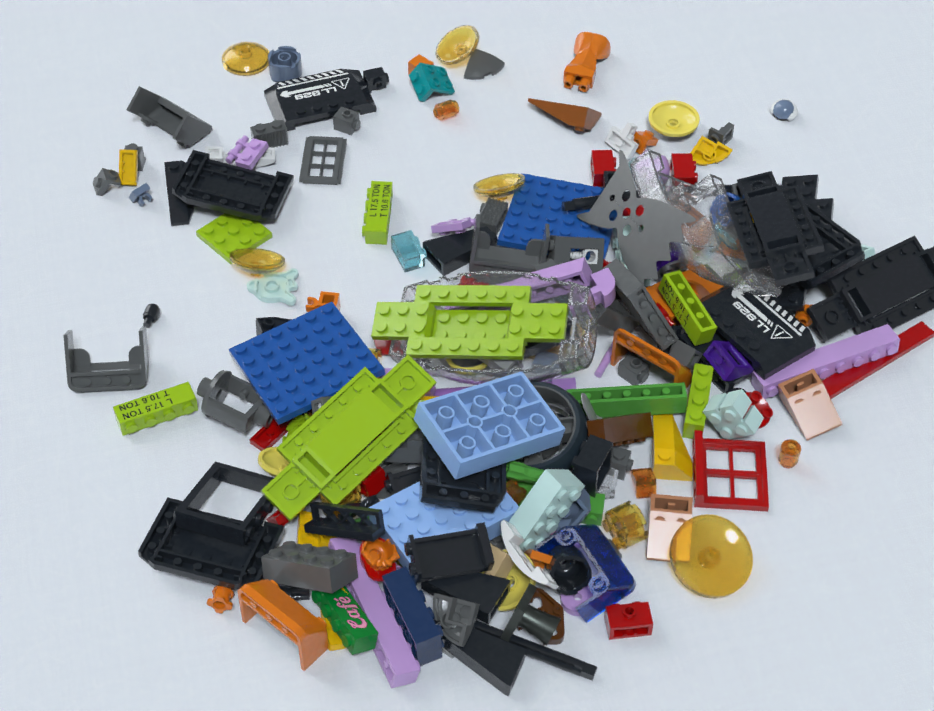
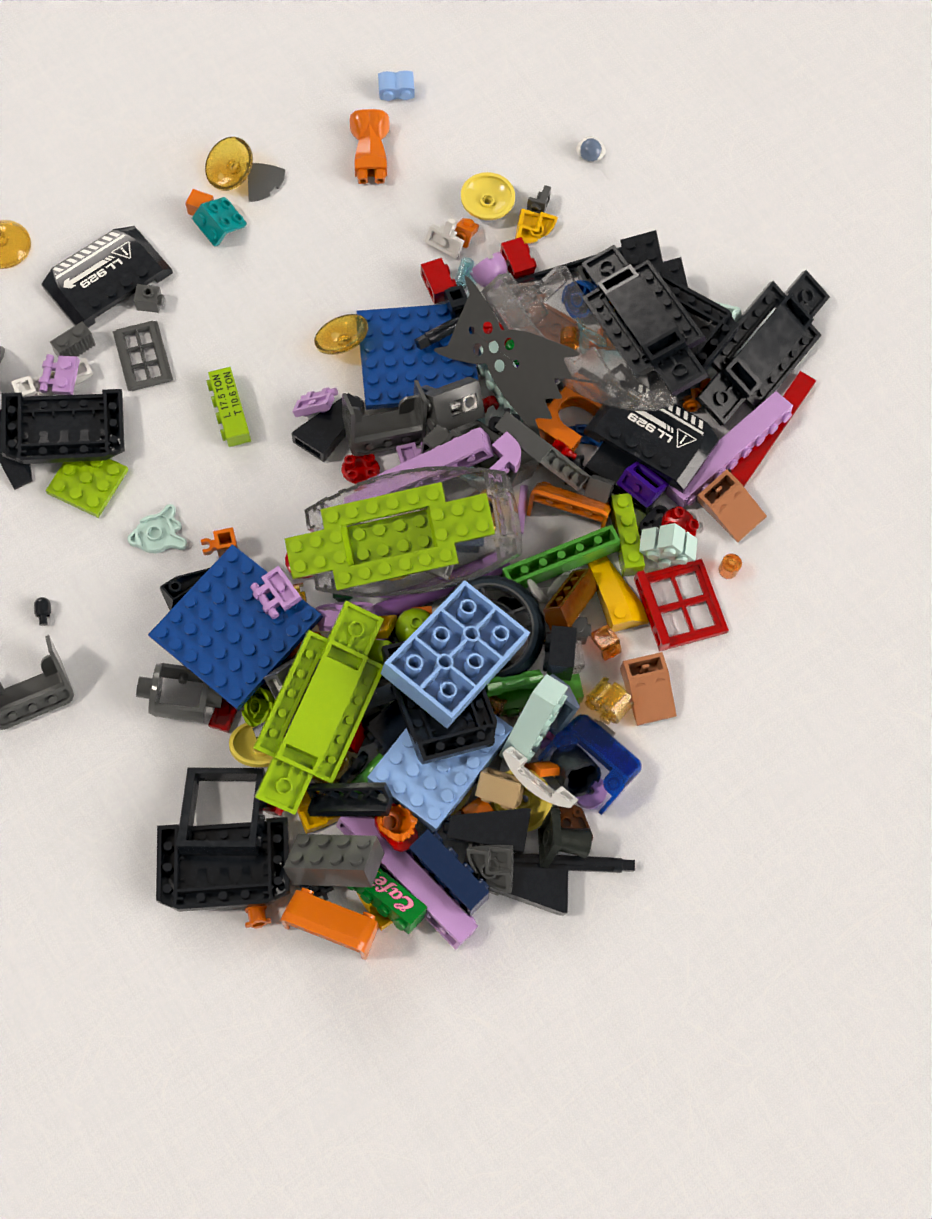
camera: 25 degrees left, 20 degrees up
(155, 408) = (97, 723): lime brick -> none
(257, 260) = (127, 509): clear yellow dish -> none
(284, 64) = (51, 243): sand blue brick -> none
(357, 339) = (281, 588): none -> lavender plate
(375, 78) = (157, 233): black brick -> none
(408, 251) = (278, 445): clear light blue brick -> none
(446, 109) = (248, 251): clear orange brick -> none
(449, 554) = (467, 805): black panel -> none
(493, 214) = (347, 375): dark grey brick -> none
(573, 115) = (388, 221): dark orange wedge -> none
(626, 26) = (396, 85): none -> light blue brick
(628, 620) = (644, 799): red brick -> none
(633, 369) = (553, 519): dark grey brick -> none
(687, 307) = (586, 437): lime brick -> none
(711, 556) = (697, 706): clear yellow dish -> none

